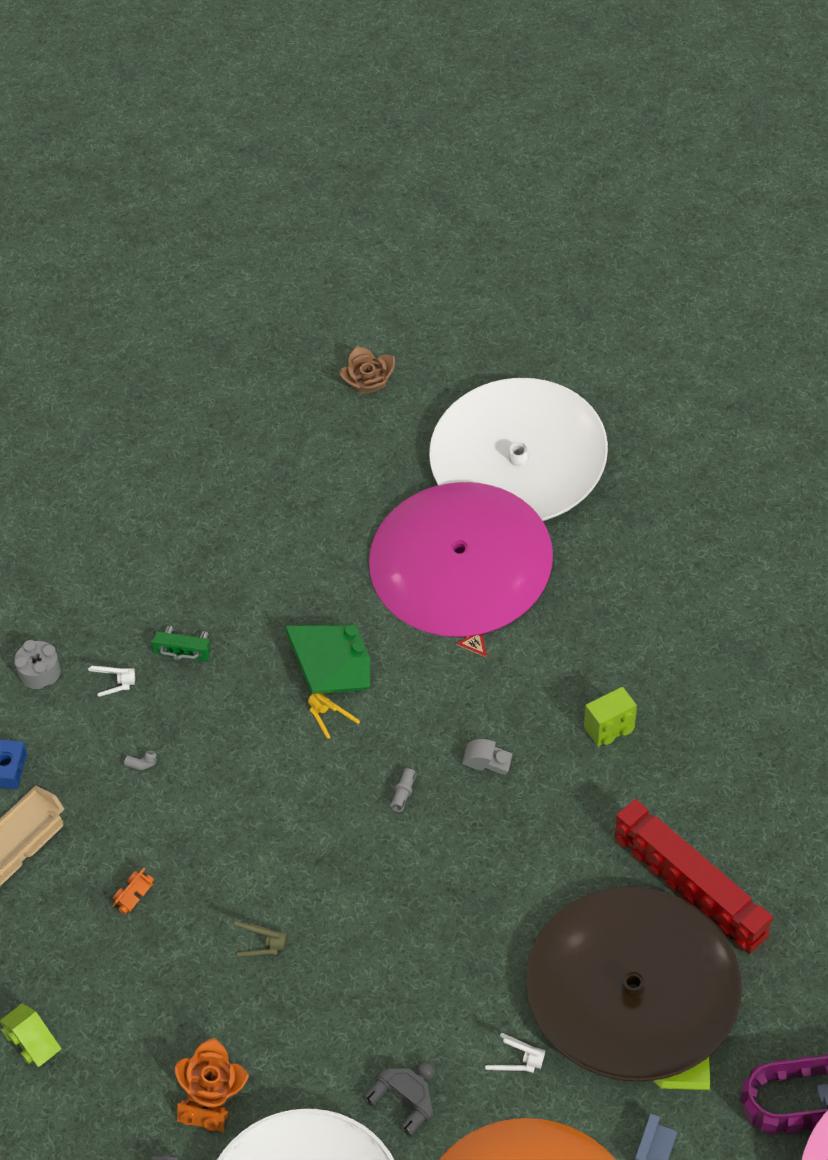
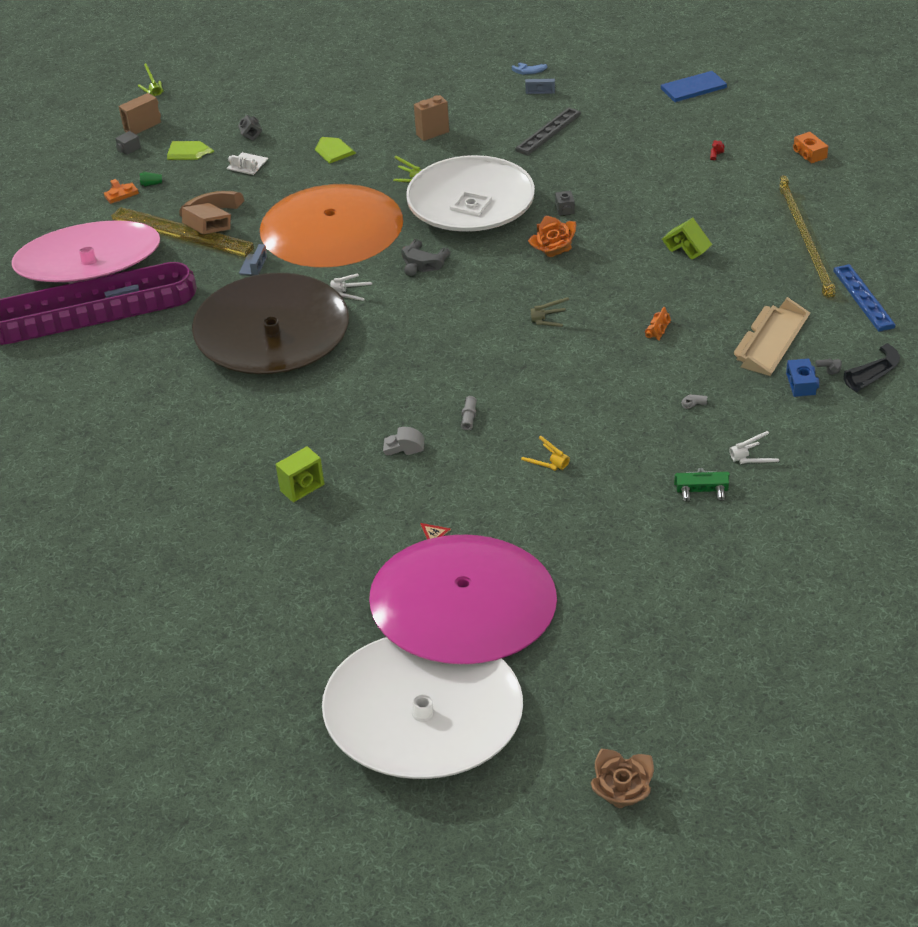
camera: 170 degrees right, 10 degrees down
(37, 664) = (822, 443): light grey brick -> none
(331, 656) = (564, 488): green slope -> none
(692, 876) = (229, 383): red brick -> none

